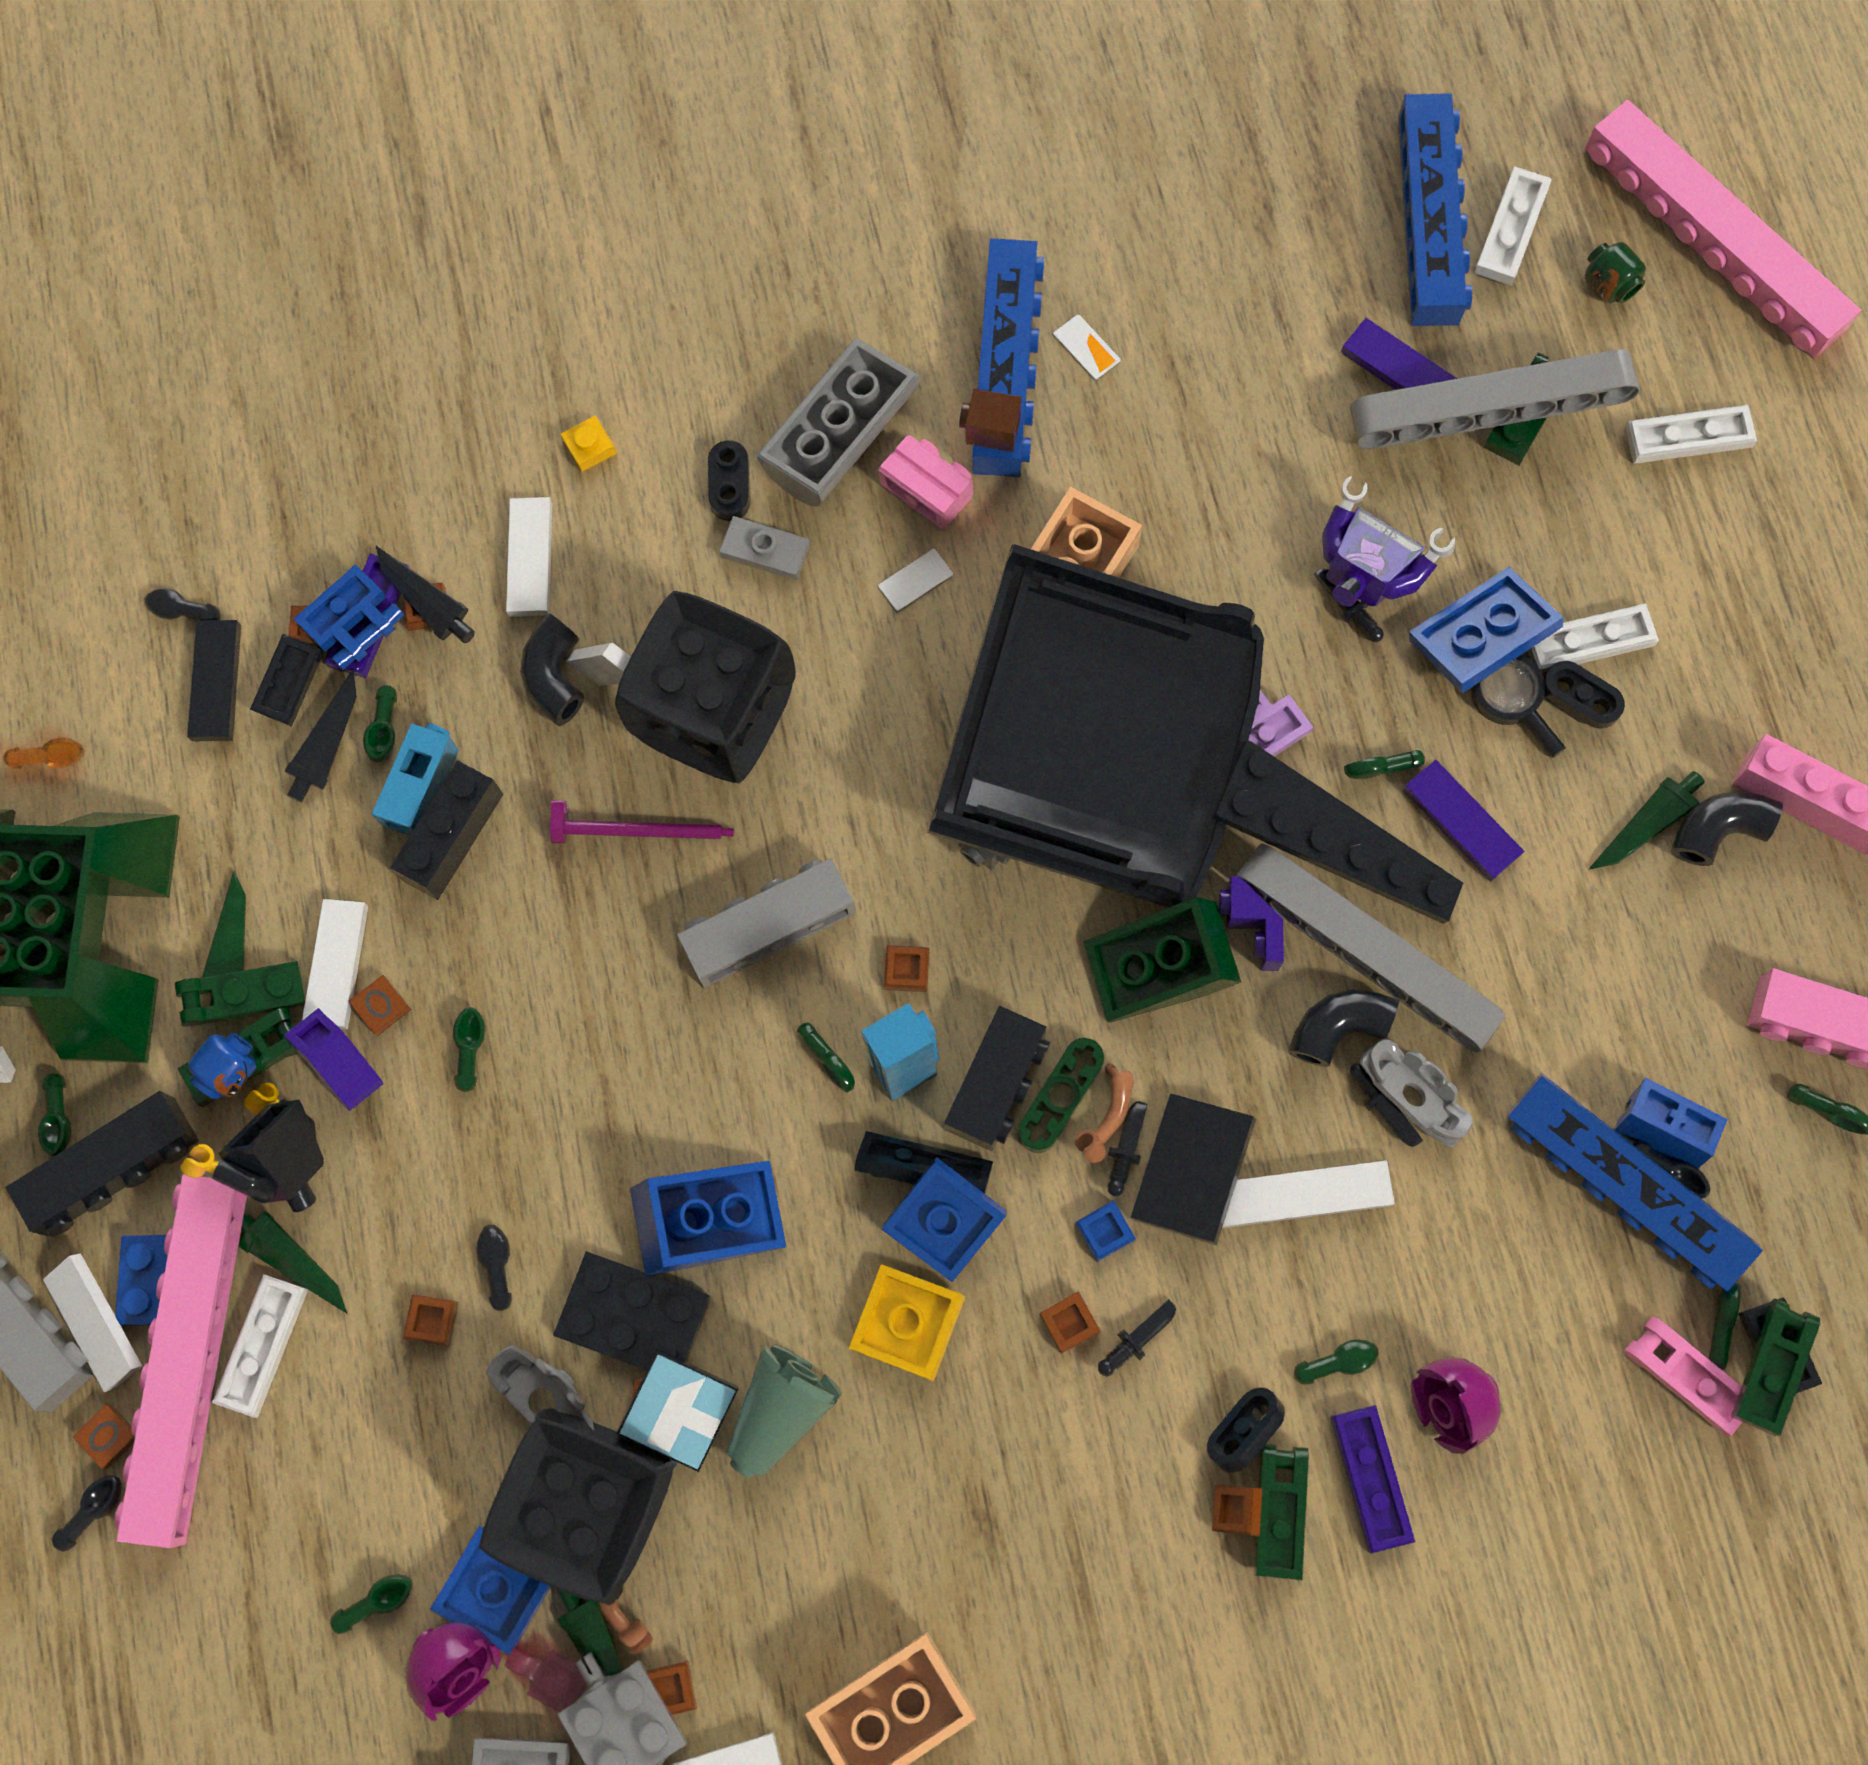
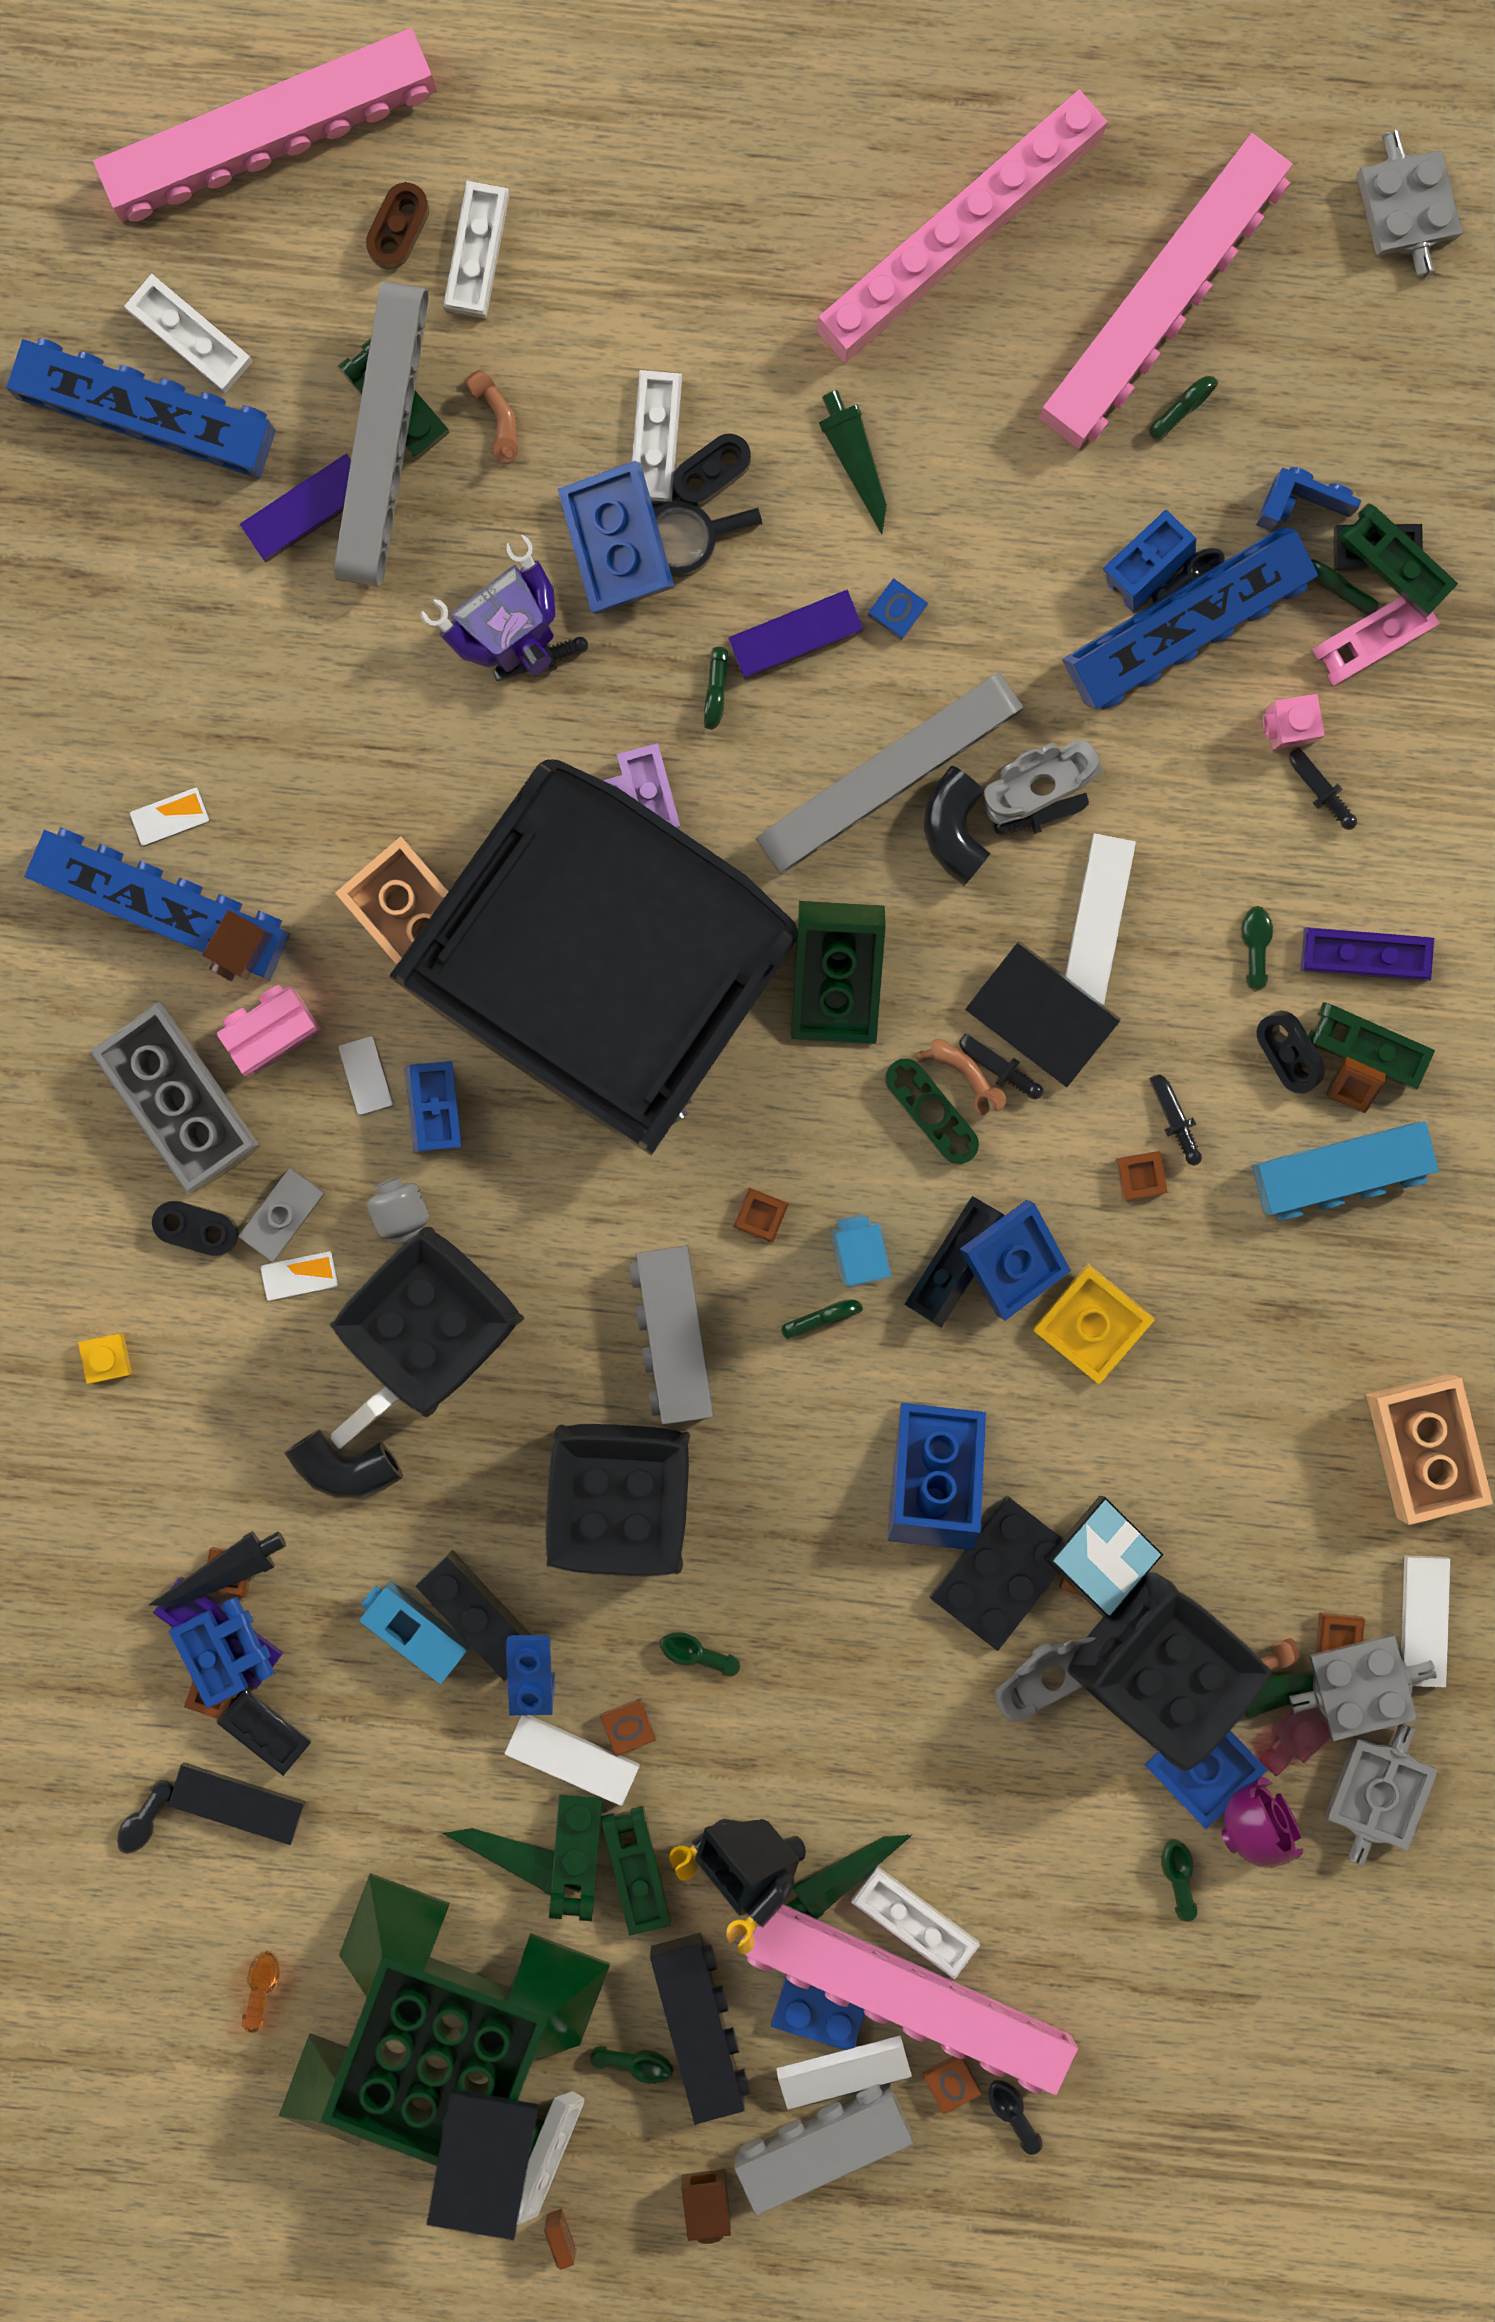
camera: 75 degrees left, 15 degrees up
(222, 1065) = (646, 1892): blue head -> none
(317, 753) = (348, 1719): black bar -> none
(334, 1059) = (671, 1784): dark purple slope -> none
(379, 735) = (351, 1654): dark green piece -> none
(400, 887) = (530, 1675): none -> blue bracket
(430, 1320) = (944, 1759): dark orange tile -> none
(493, 1254) = (903, 1684): black piece -> none
(529, 557) = (210, 1453): white tile -> none
(561, 826) = (509, 1502): magenta piece -> none
(591, 910) = (617, 1499): none -> black piece
(714, 579) = (299, 1276): none -> white sticker
(778, 1410) = (1135, 1464): sand green cone -> none
(806, 638) = (397, 1210): none -> light grey head
(906, 638) = (432, 1106): none -> blue hinge
(997, 1079) = (900, 1166): black brick -> none
(1105, 1231) = (1070, 1114): blue tile -> none
(1149, 1528) = (1344, 1169): none -> dark azure brick
(1249, 911) = (813, 876): dark purple slope -> none
(1309, 823) = (748, 790): black wing -> none
(1458, 1401) = (1332, 852): magenta cylinder -> none
(1515, 1380) = (1322, 789): none -> black piece
(1525, 905) = (897, 609): none -> blue tile
(1527, 513) = (505, 442): none -> nougat piece
(1573, 1318) = (1293, 722): none -> bright pink brick
(1615, 272) = (277, 252): dark green head -> none
(1680, 360) = (396, 227): none -> reddish brown plate
(1724, 815) = (878, 388): black cylinder -> none
(1808, 1248) = (1301, 483): none -> blue bracket

